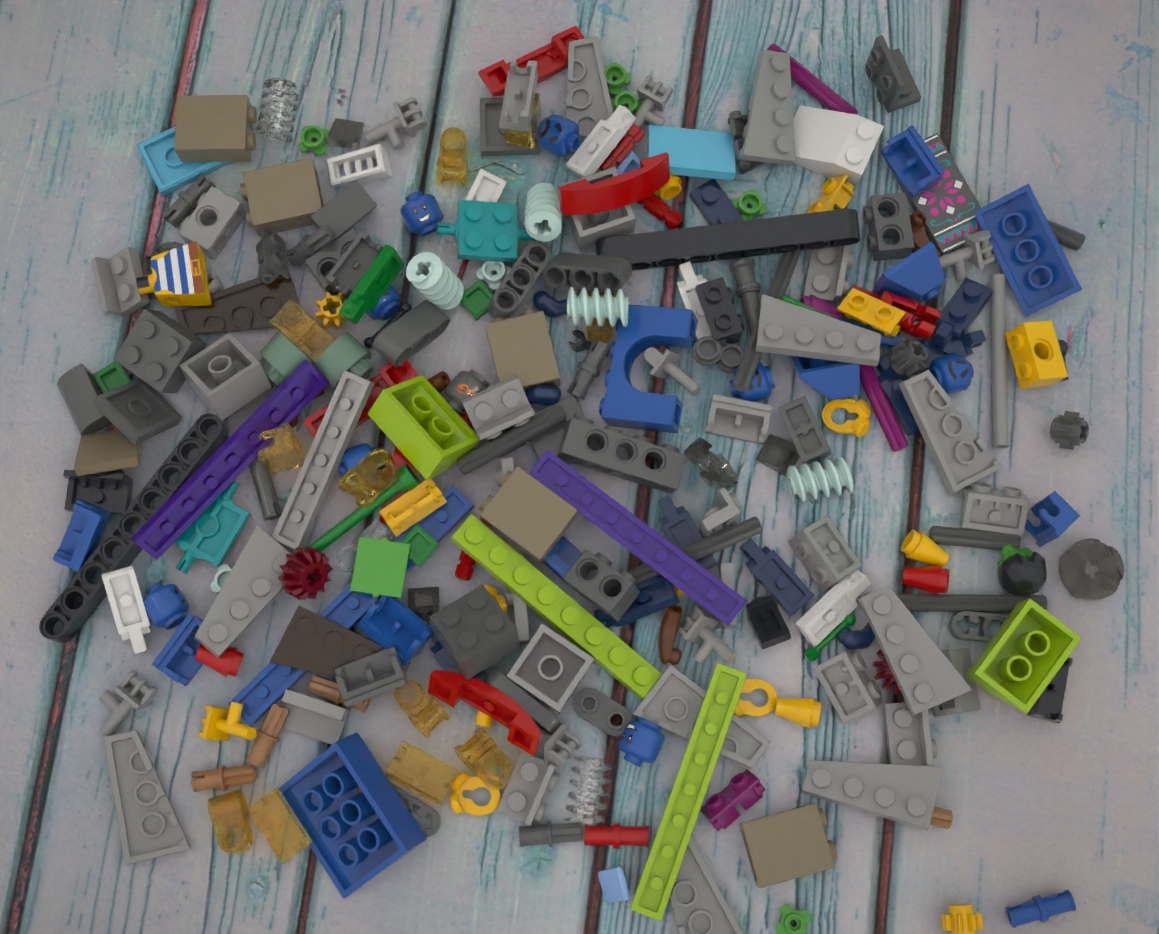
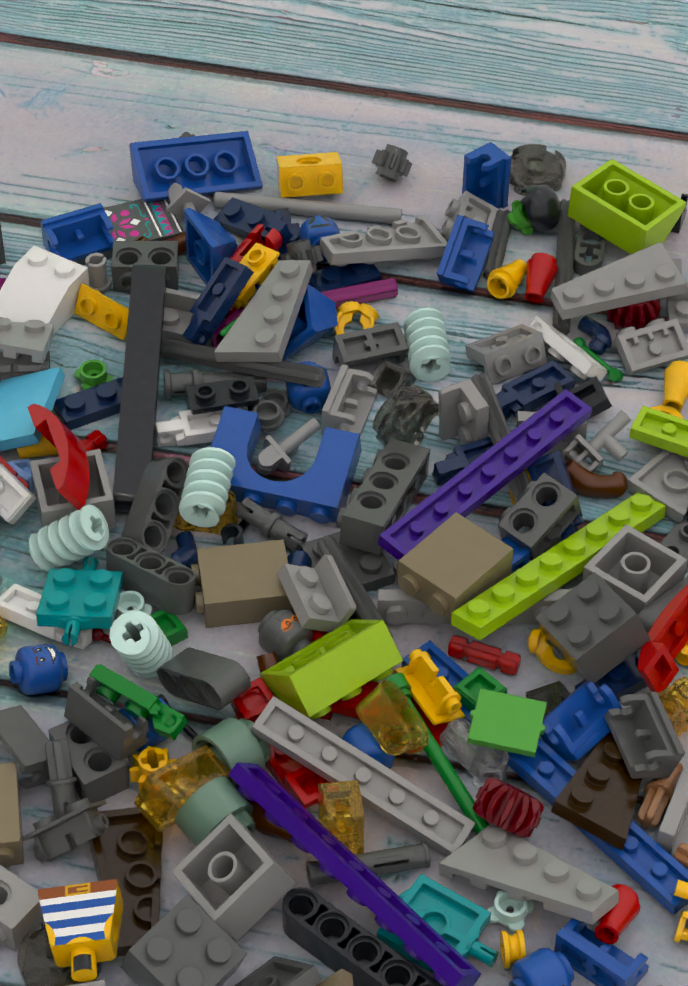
camera: 85 degrees left, 30 degrees down
(190, 583) = (511, 947): none -> yellow bush
(829, 288) = (216, 300): none -> dark blue hinge
(869, 186) = (98, 272): none -> light grey pin
(939, 506) = (465, 254): none -> blue hinge

